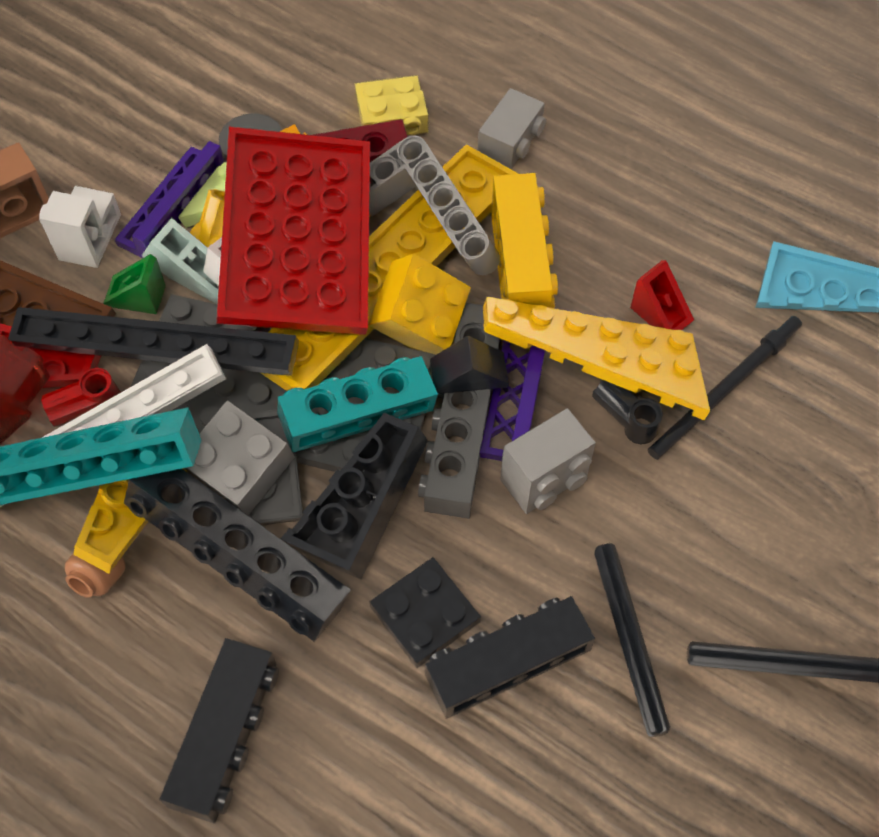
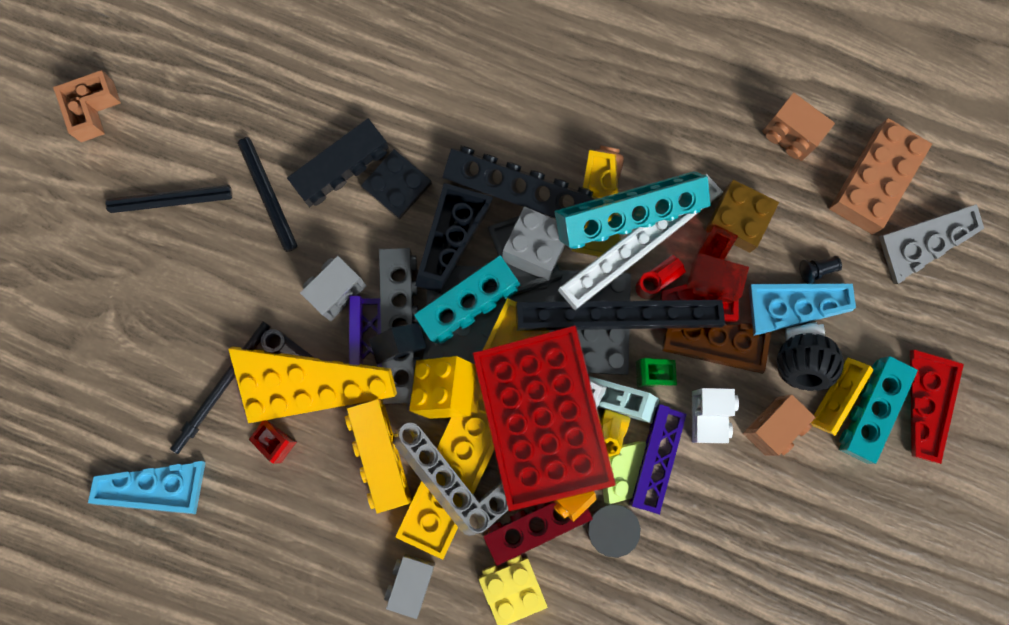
camera: 165 degrees right, 20 degrees up
(219, 731) = (498, 86): black brick -> none

